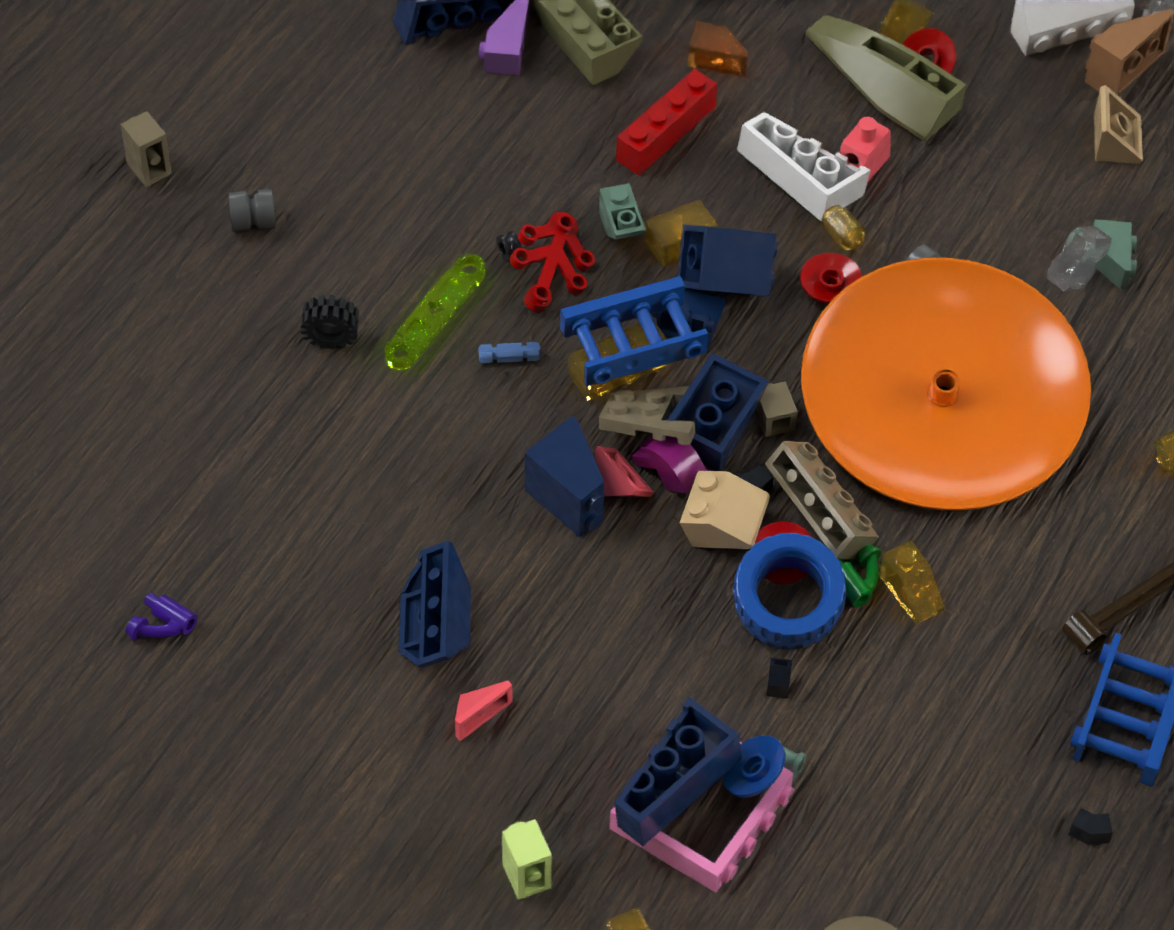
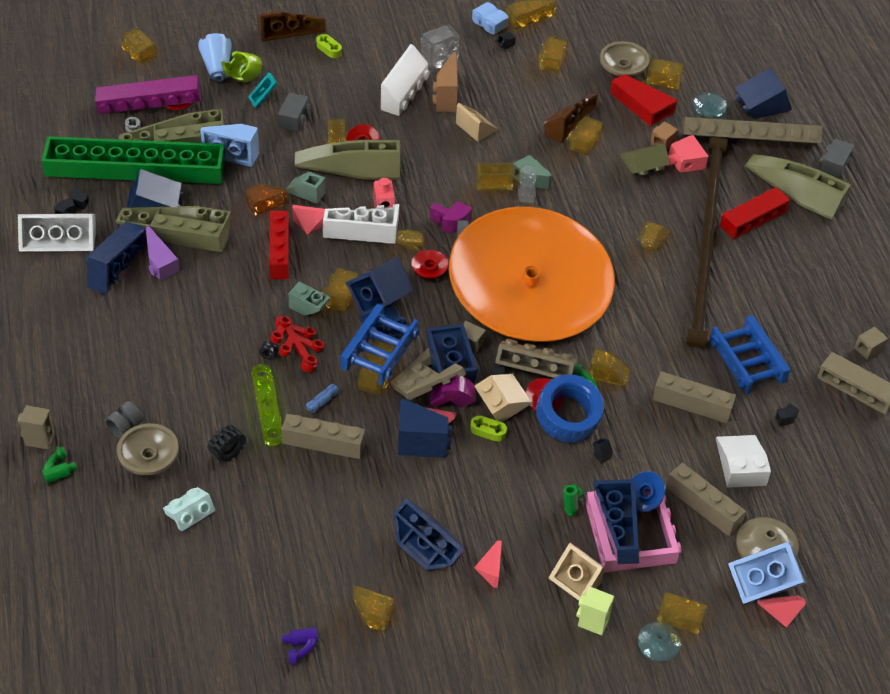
camera: 45 degrees left, 5 degrees down
(118, 218) = (54, 473): none -> green plant
(214, 369) = (190, 508): none -> light aqua bracket
(236, 263) = (147, 441): none -> dark tan dish
(283, 646) = (373, 607): none -> clear yellow slope
(454, 397) = (323, 436): none -> dark tan brick
(564, 800) = (577, 572): none -> tan slope
(657, 702) = (571, 495): none -> green plant
(675, 538) = (488, 428): none -> lime beam
(741, 109) = (308, 218): none -> coral slope
(786, 73) = (308, 186): none -> sand green slope
(839, 844) = (705, 499): none -> dark tan brick
(942, 236) = (449, 217): none -> magenta brick
(954, 836) = (743, 461): none -> white slope
(982, 705) = (694, 397): none -> dark tan brick
(1047, 218) = (494, 176): none -> clear yellow brick

